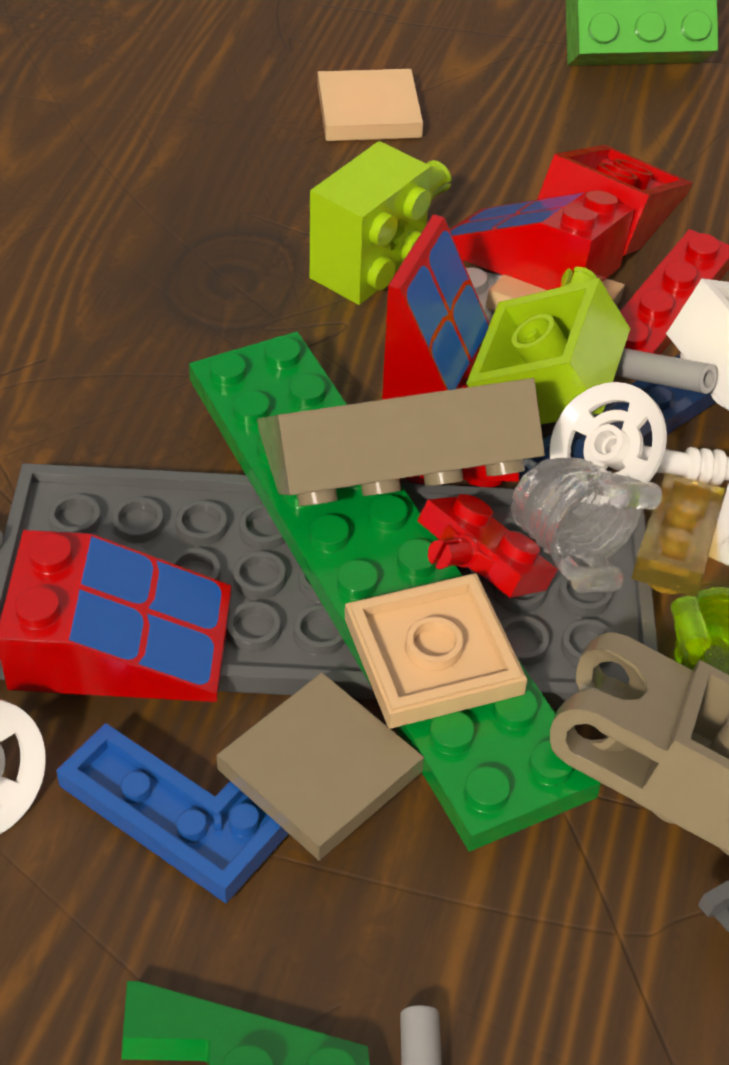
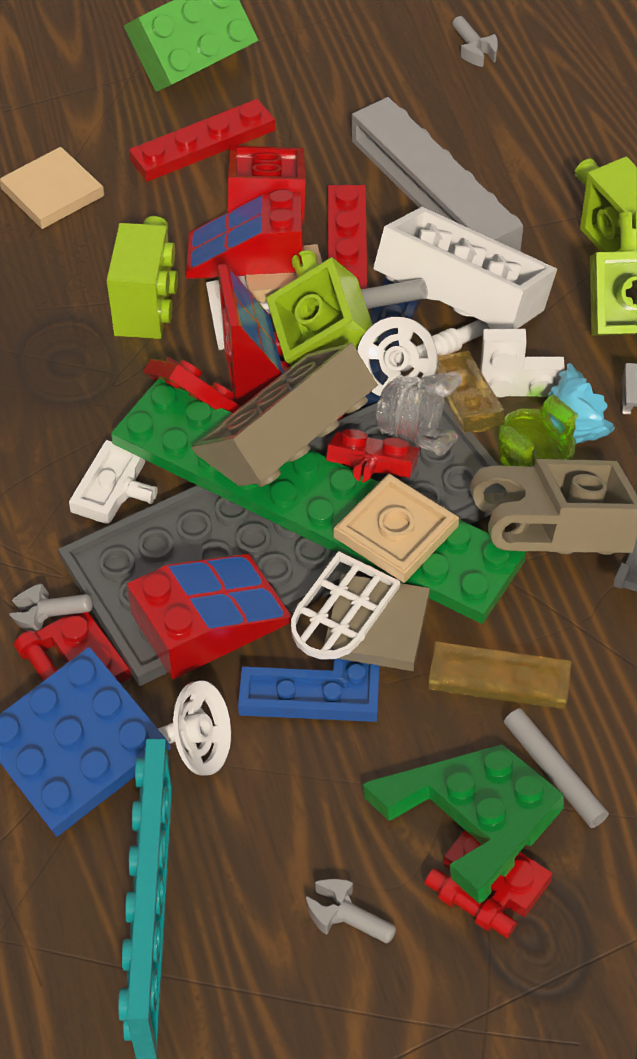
camera: 30 degrees left, 5 degrees up
(151, 424) = (109, 484): none -> white plate
(308, 720) = (357, 602): none -> white window
(321, 342) = (187, 378): none -> red plate
(446, 943) = (500, 675): none -> clear yellow plate
(579, 127) = (202, 140): none -> red plate

